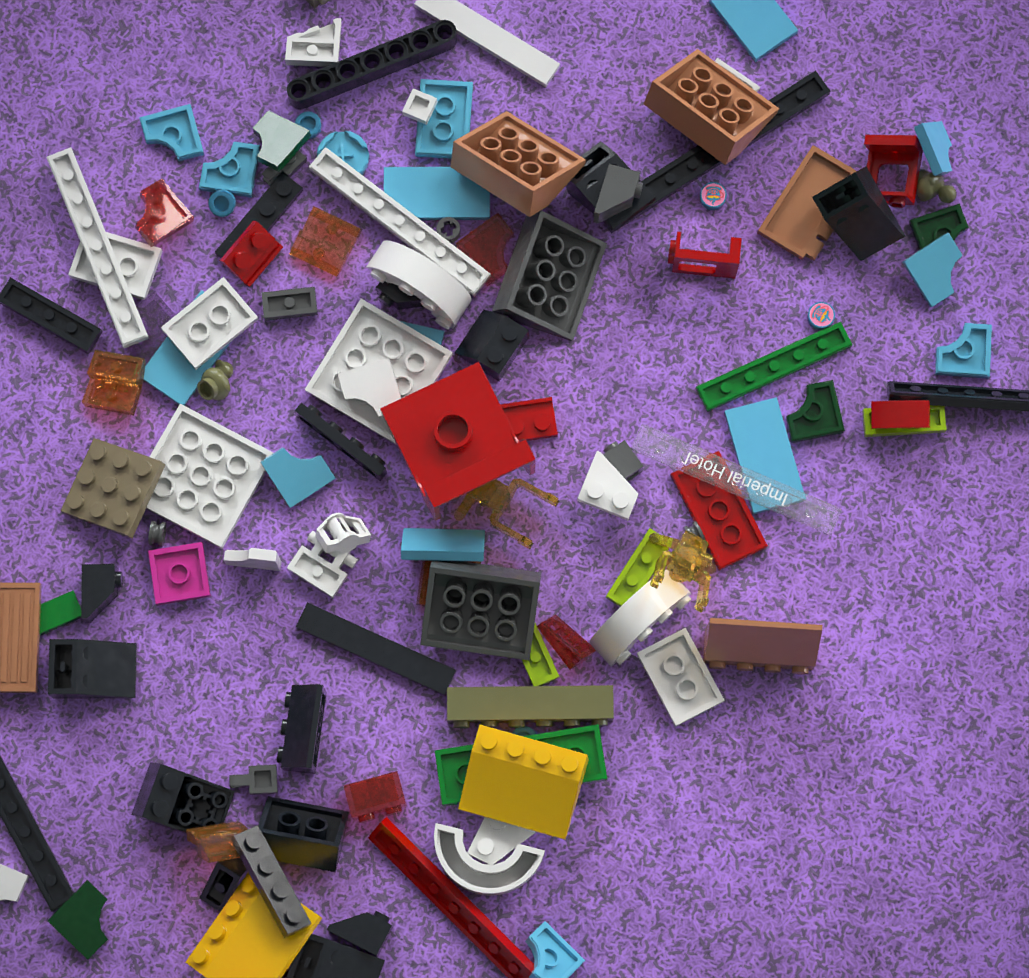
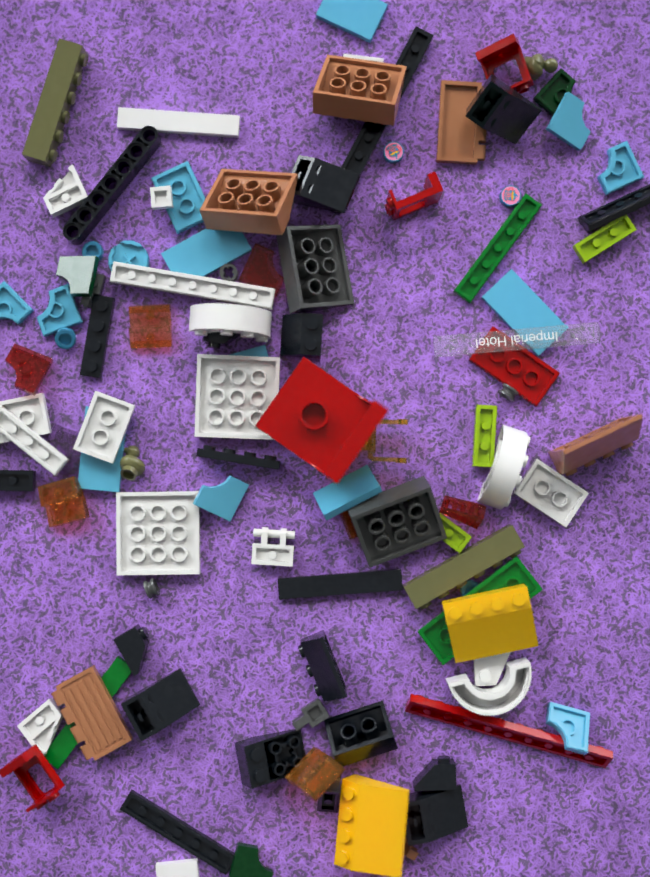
camera: 25 degrees left, 10 degrees up
(113, 487) = (104, 574): dark tan plate -> none
(179, 573) = (181, 606): dark pink plate -> none
(251, 253) = (105, 362): red plate -> none
(253, 558) = (225, 571): white tile -> none
(271, 881) = (363, 788): plate -> none
(289, 303) = (150, 382): dark grey plate -> none
(344, 538) = (275, 521): white piece -> none
(371, 384) = (237, 409): white tile -> none
(375, 796) = (395, 683): clear red brick -> none
(532, 418) = (356, 372): red plate -> none
(607, 489) = (436, 394): white wing -> none
(617, 192) = (333, 184): dark grey slope -> none
(623, 459) = (432, 376): dark grey slope -> none
(685, 563) = (516, 417): clear yellow piece -> none
(818, 415) = (544, 265): dark green tile -> none
(900, 414) = (603, 236): red slope -> none
(935, 146) = (527, 35): medium azure tile -> none

